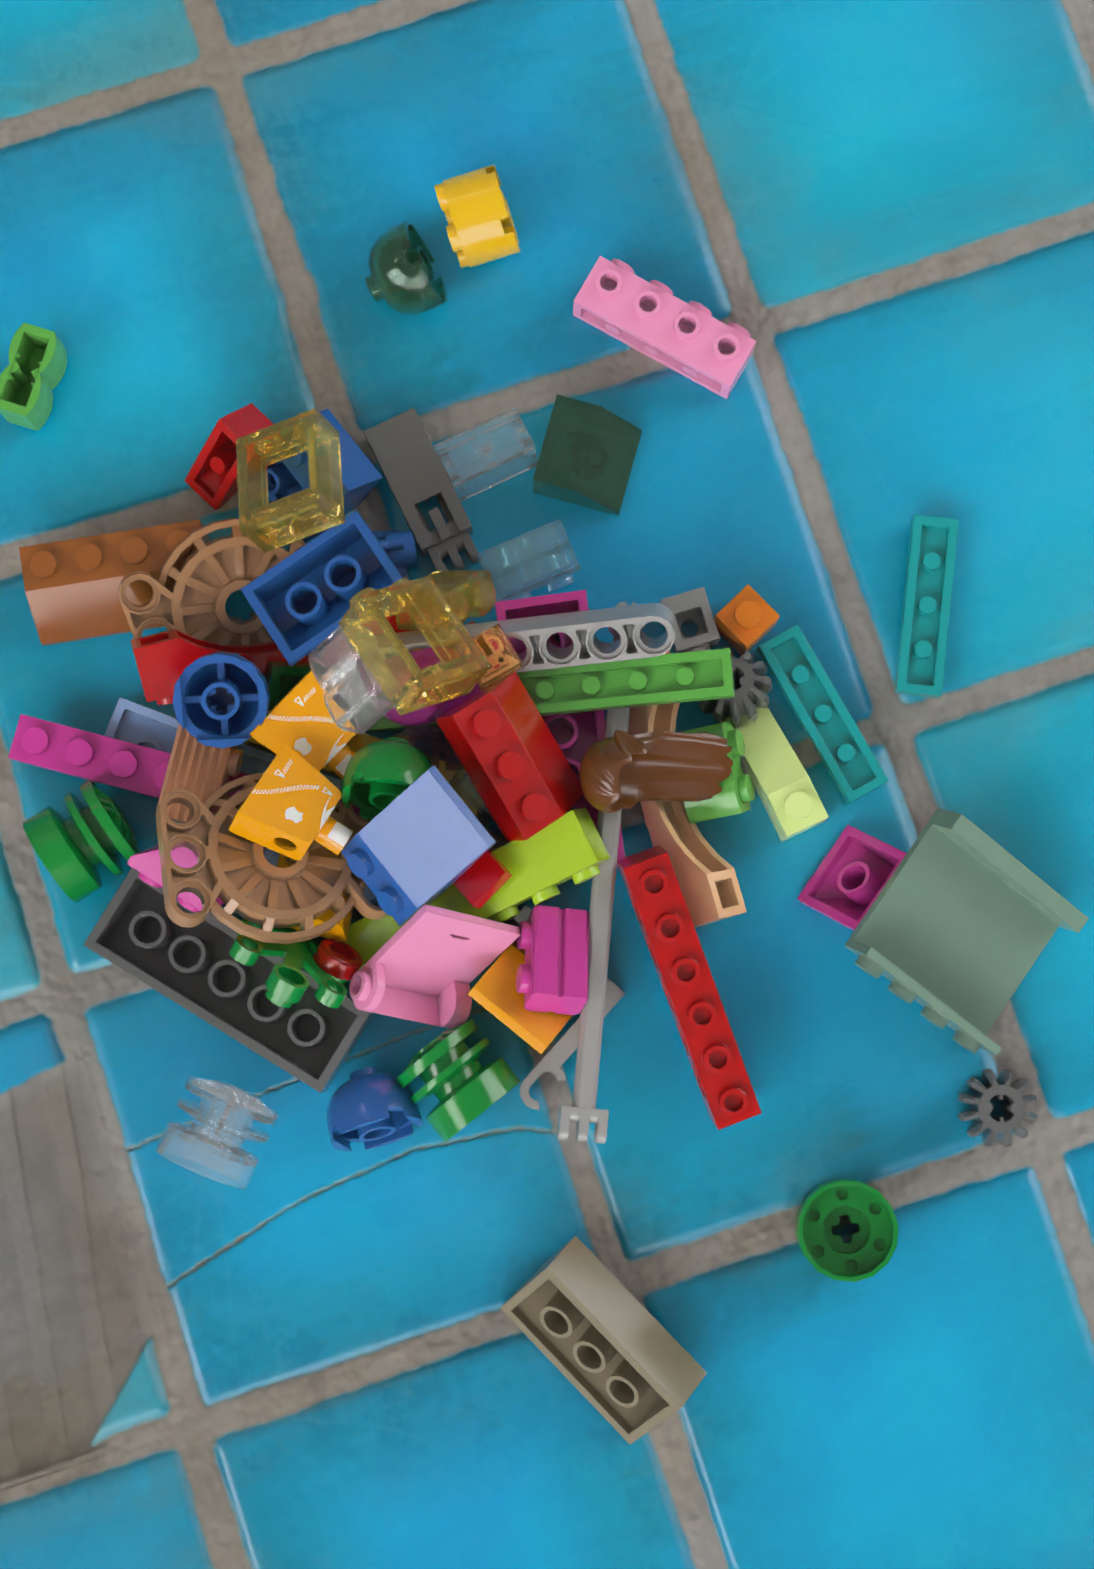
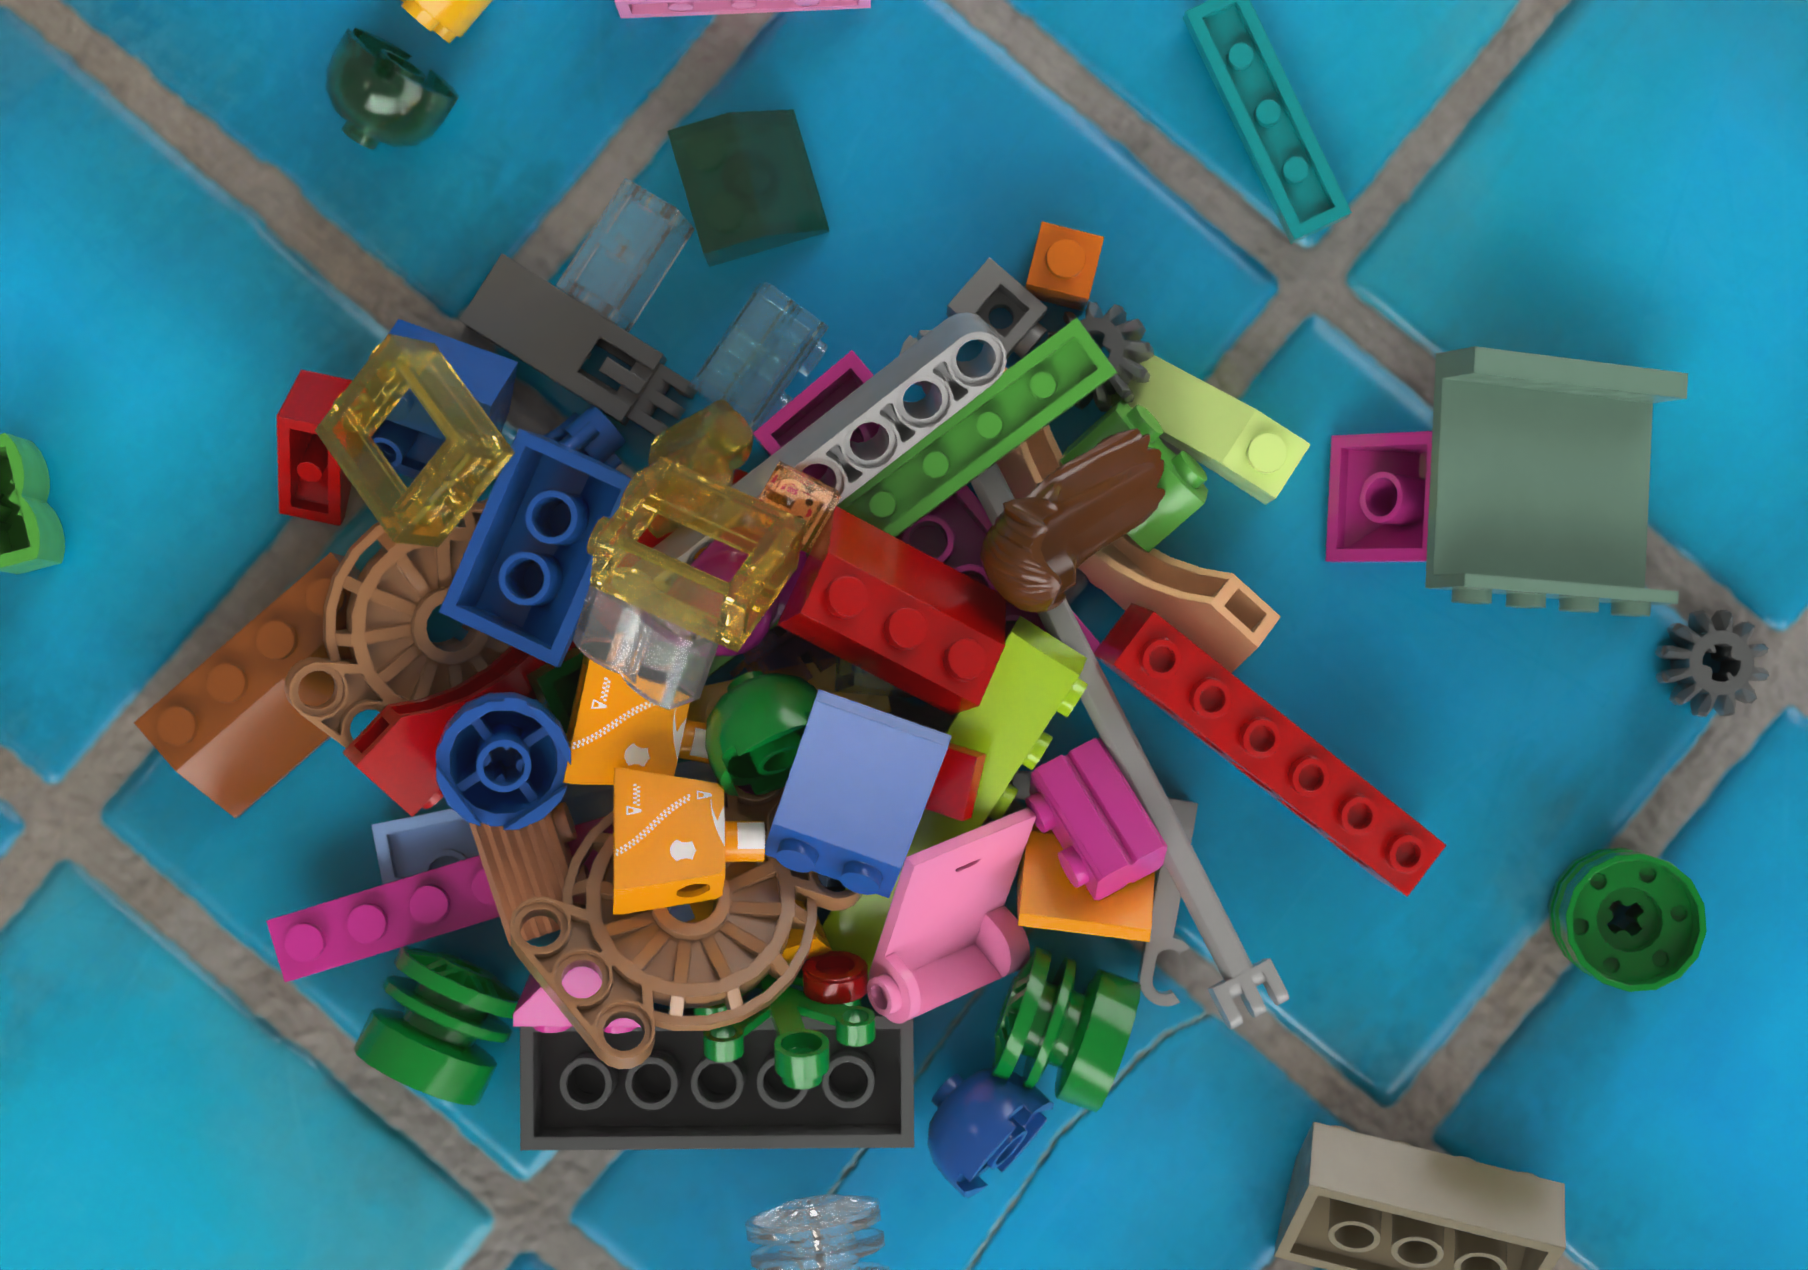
camera: 30 degrees left, 5 degrees up
(822, 714) = (1223, 322): teal plate -> none

